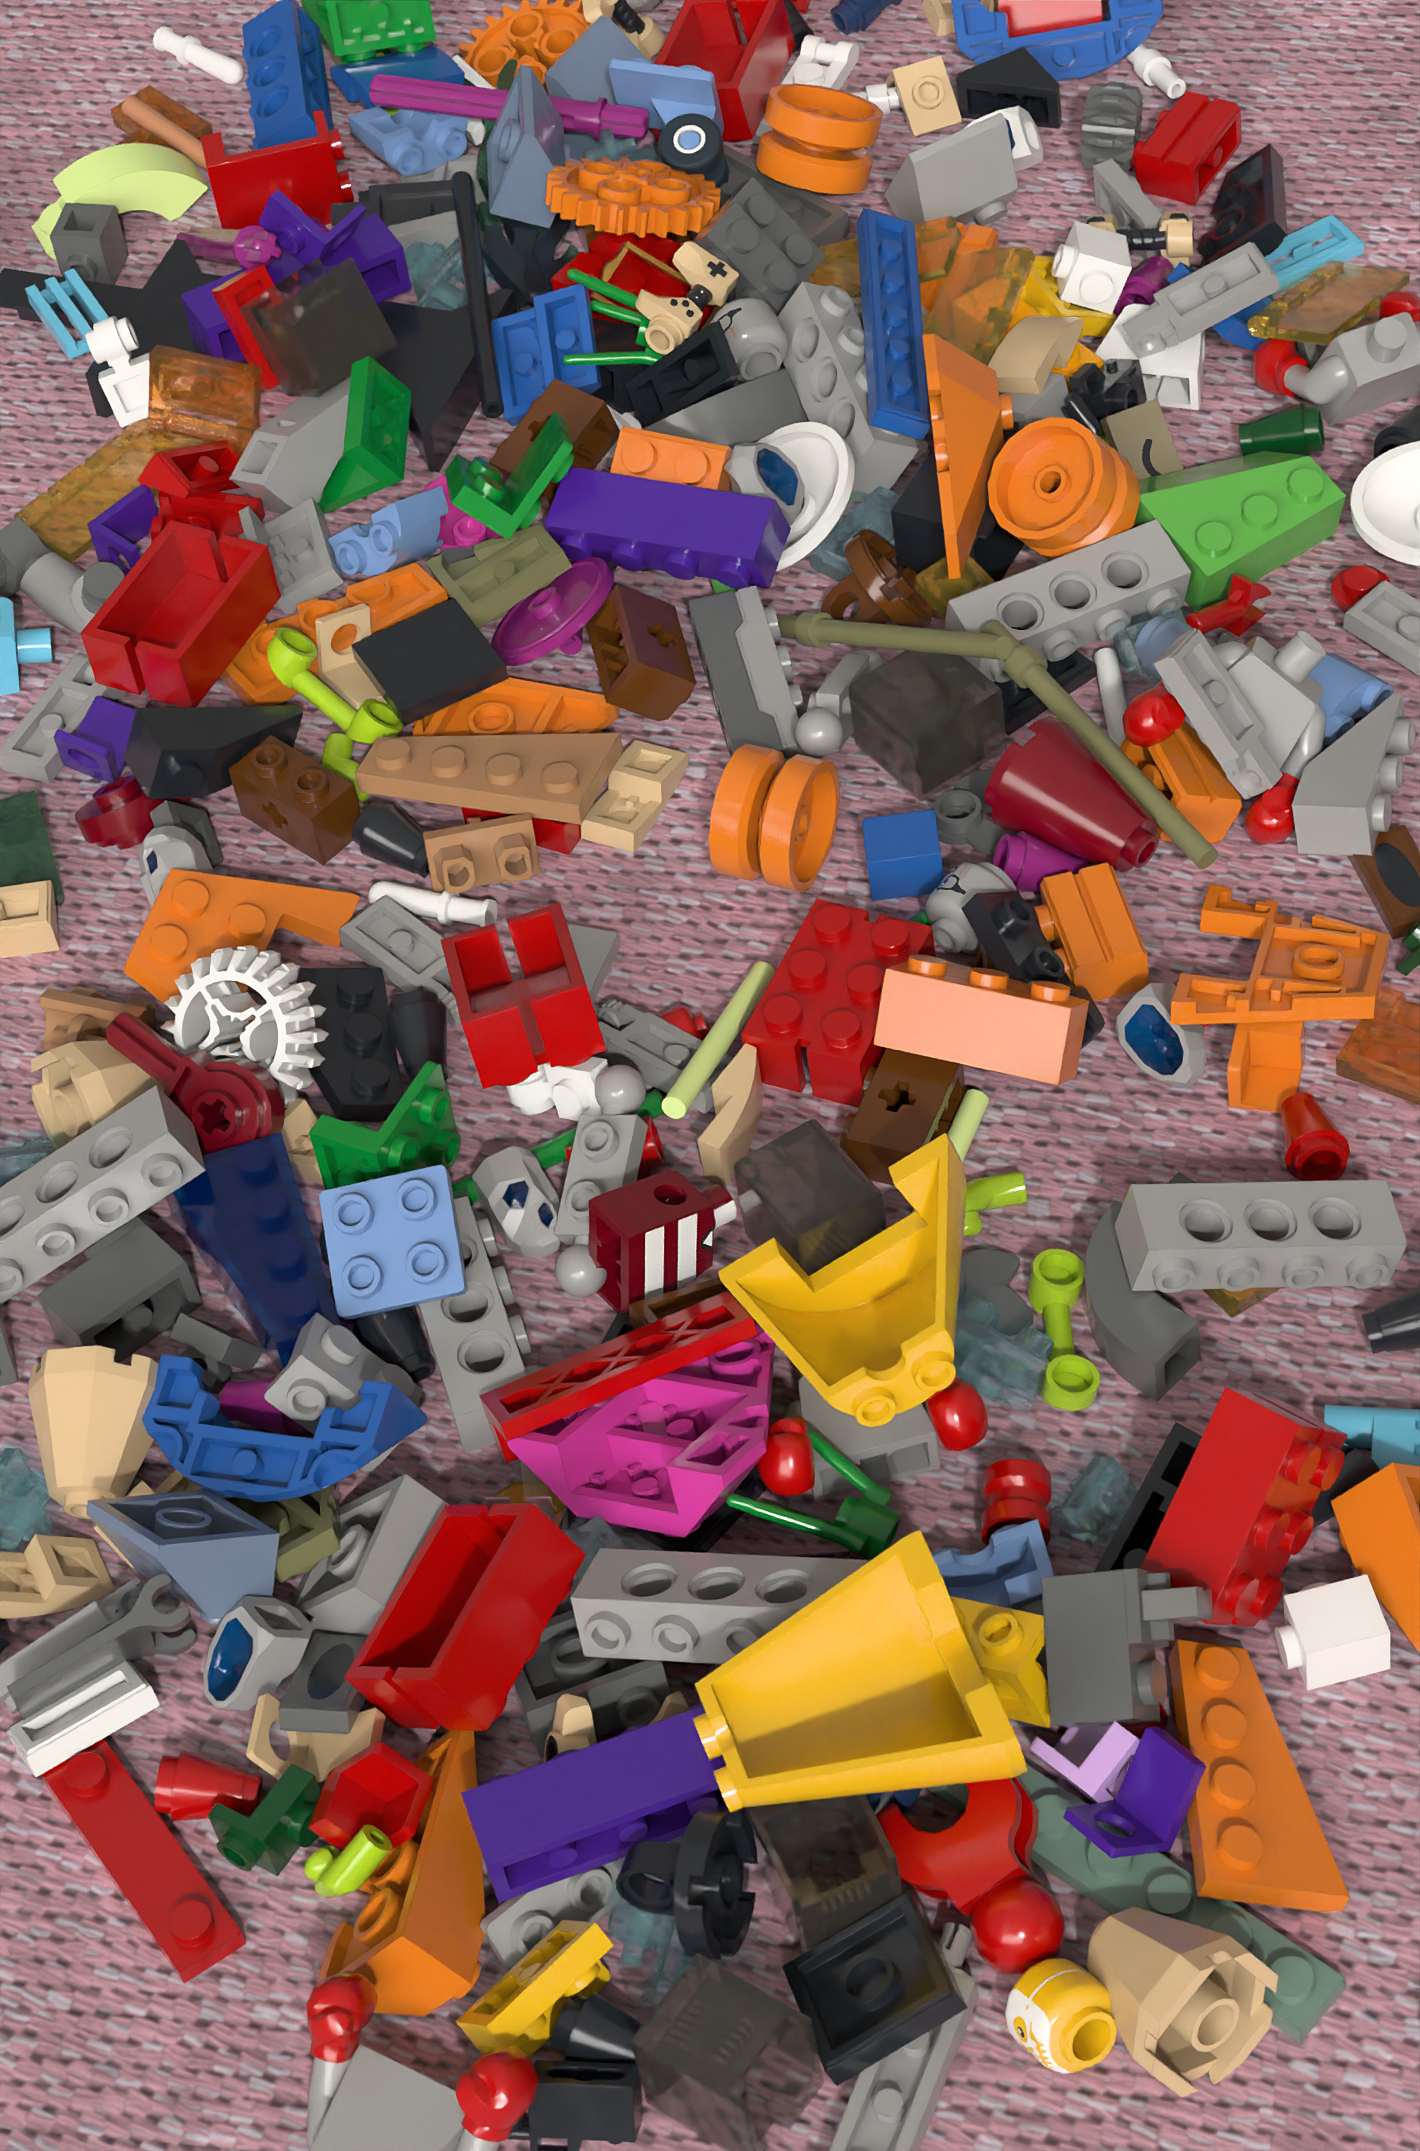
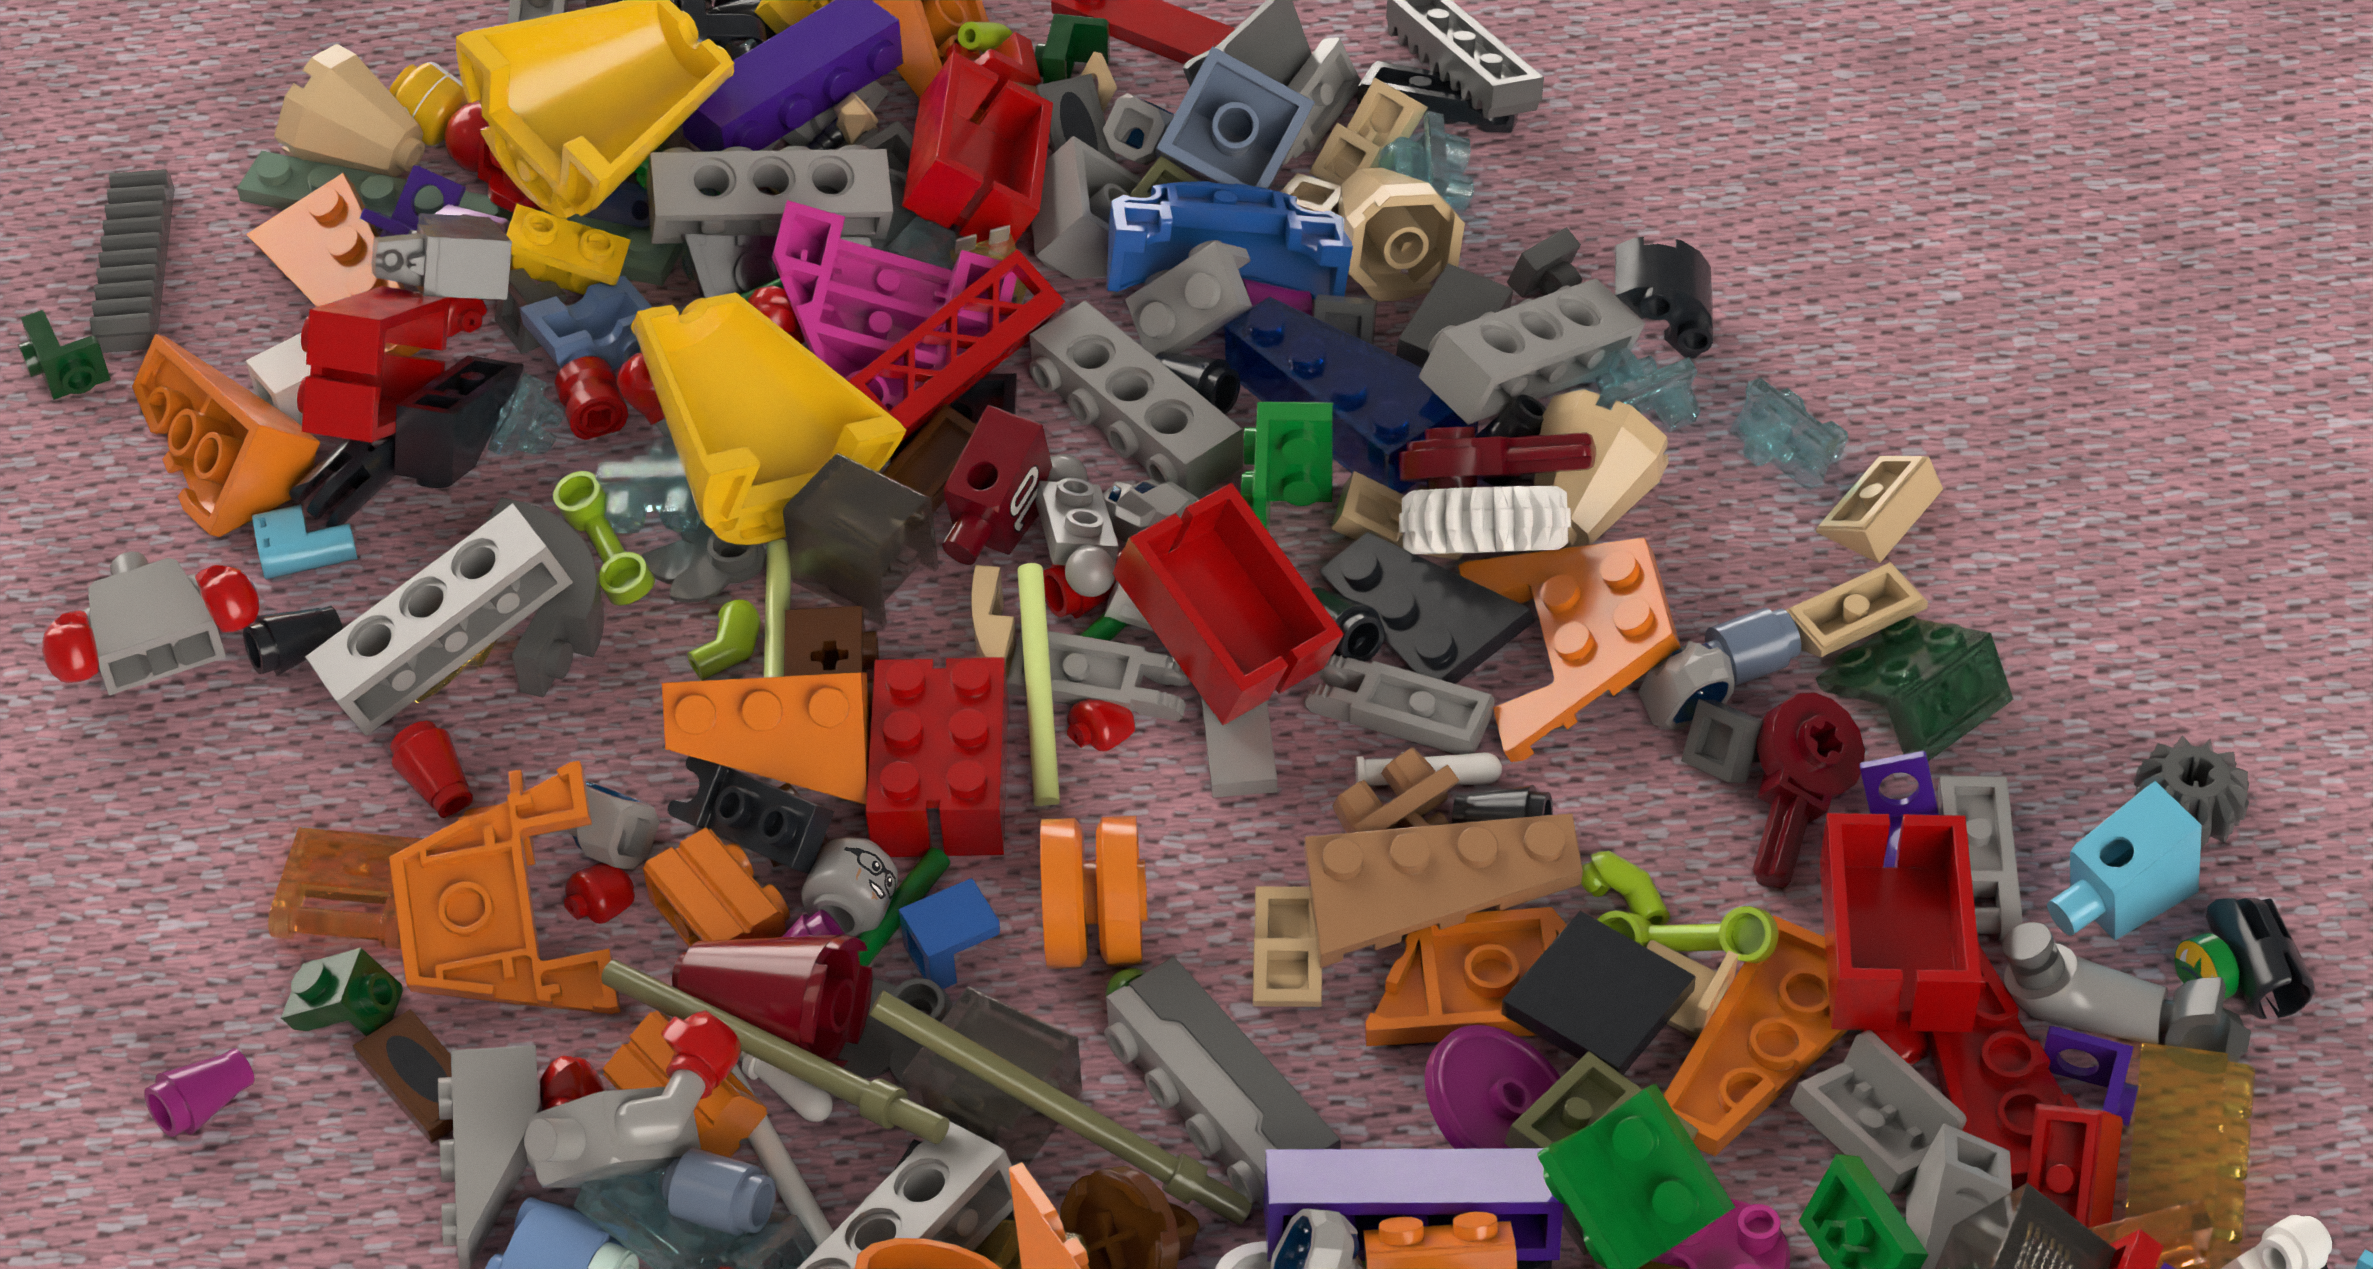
camera: 150 degrees right, 0 degrees up
(86, 1015) = (1677, 538): medium nougat hips -> none
(98, 918) = (1756, 642): none -> sand blue brick
(193, 747) = (1753, 778): black slope -> none
(193, 1785) = (1141, 62): red cone -> none
(310, 803) = (1638, 810): reddish brown brick -> none
(392, 1242) = (1219, 375): medium blue plate -> none
(394, 537) = (1767, 1148): medium blue cylinder -> none
(641, 654) = (1359, 1075): reddish brown brick -> none
(829, 716) = (1081, 970): light grey plate -> none
(1218, 712) = (631, 1046): light grey hinge -> none

